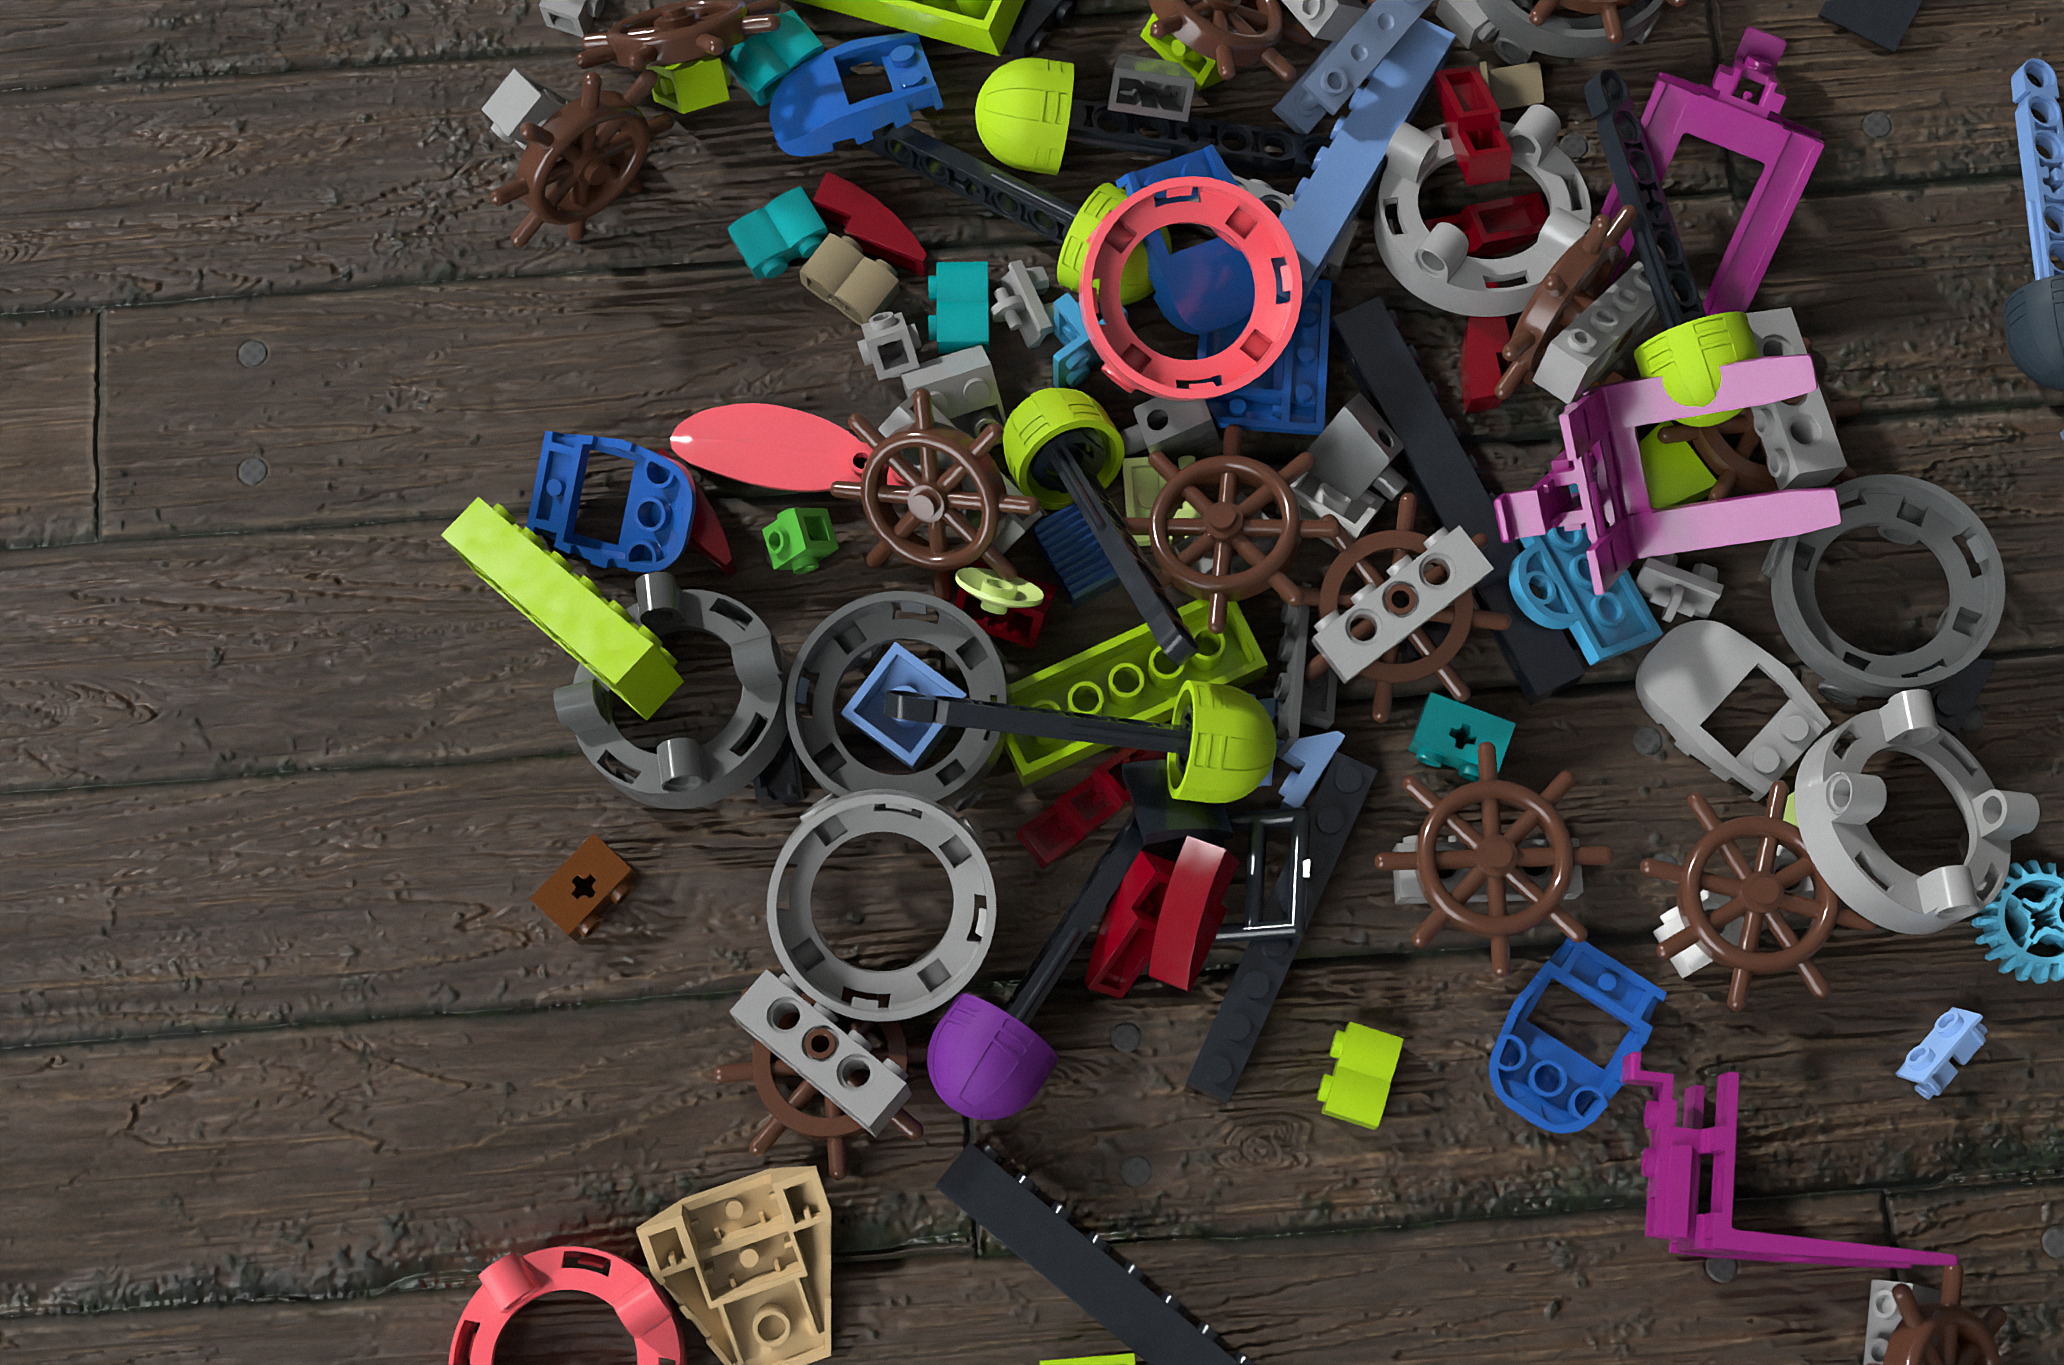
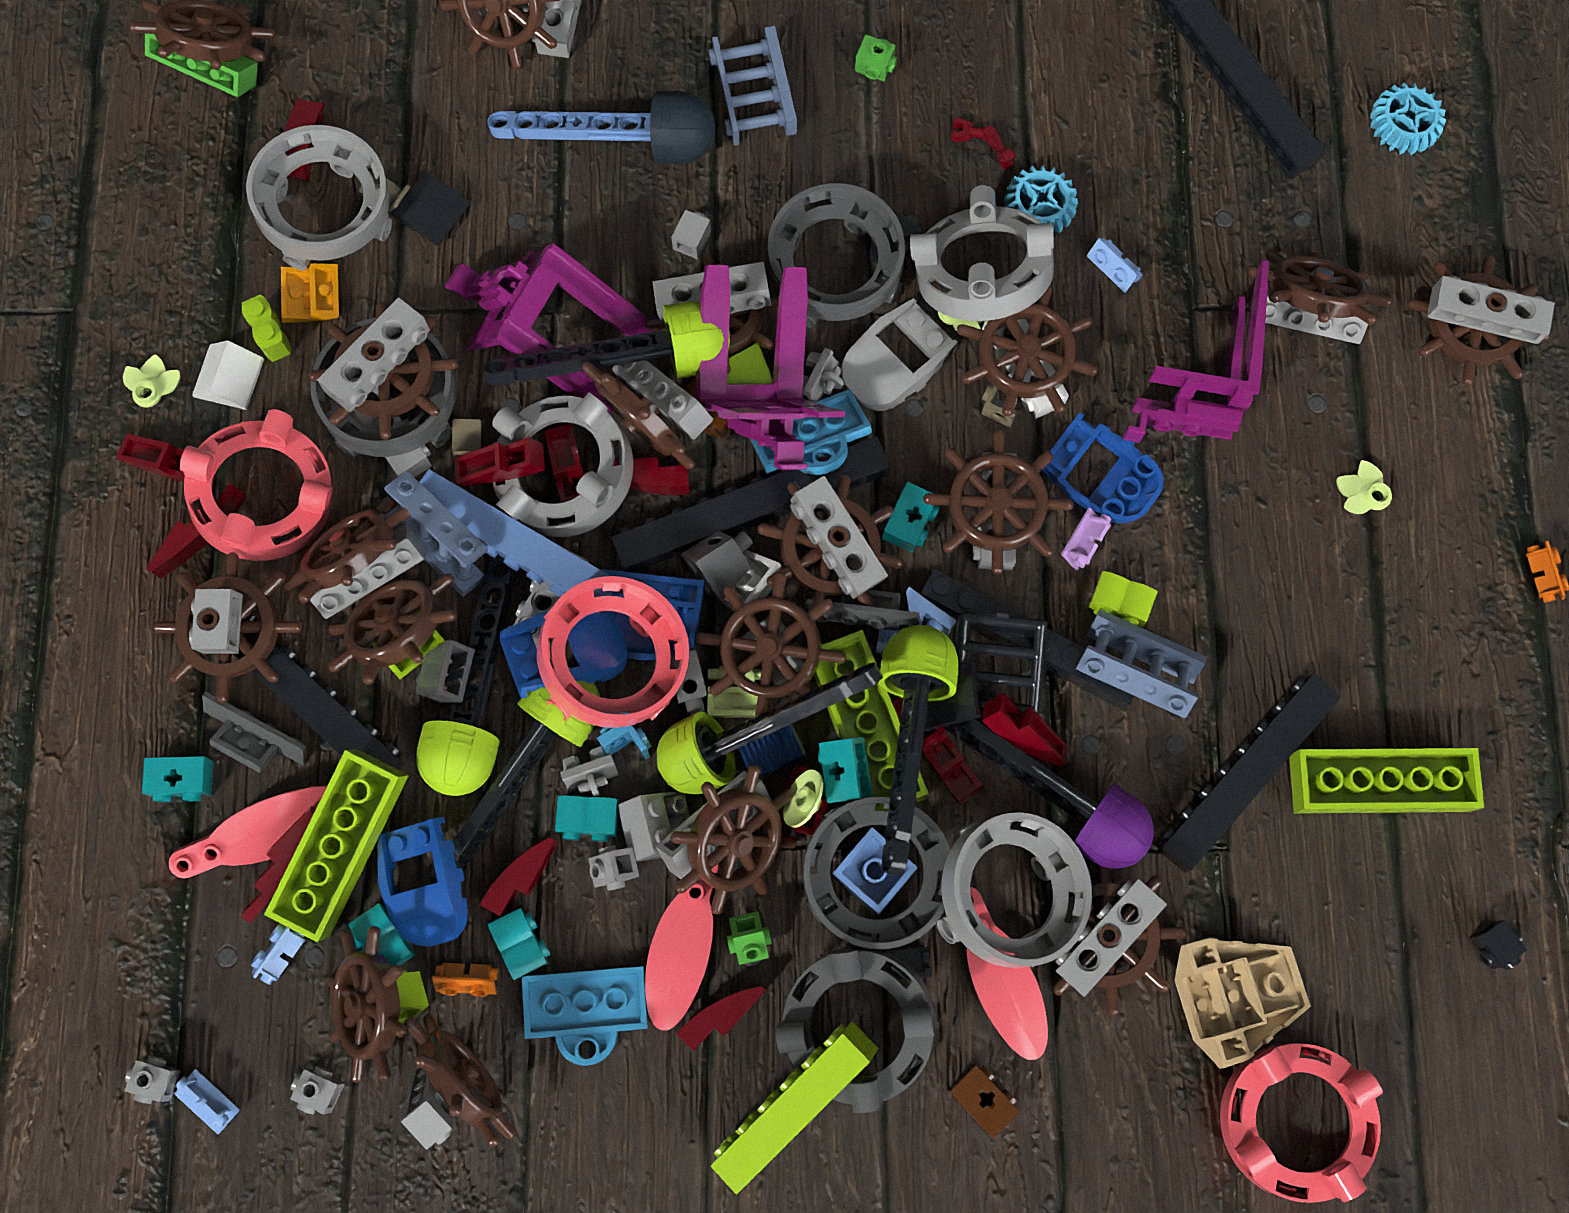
camera: 90 degrees left, 0 degrees up
(656, 511) = (724, 1037): blue slope -> none
(694, 330) = (585, 1008): none -> dark azure plate
(728, 155) = (450, 979): none -> orange hinge
(728, 917) = (1009, 996): none -> coral plant
(849, 279) = (559, 893): dark tan brick -> none
(1047, 647) = (853, 757): none -> teal brick
(1191, 912) = (1026, 691): dark red slope -> none
(1287, 1111) = (1146, 647): none -> sand blue fence
(1456, 1011) = (1081, 544): none -> lavender hinge
(1672, 851) = (990, 409): none -> dark tan bracket
(1892, 375) = (691, 234): none -> light grey brick

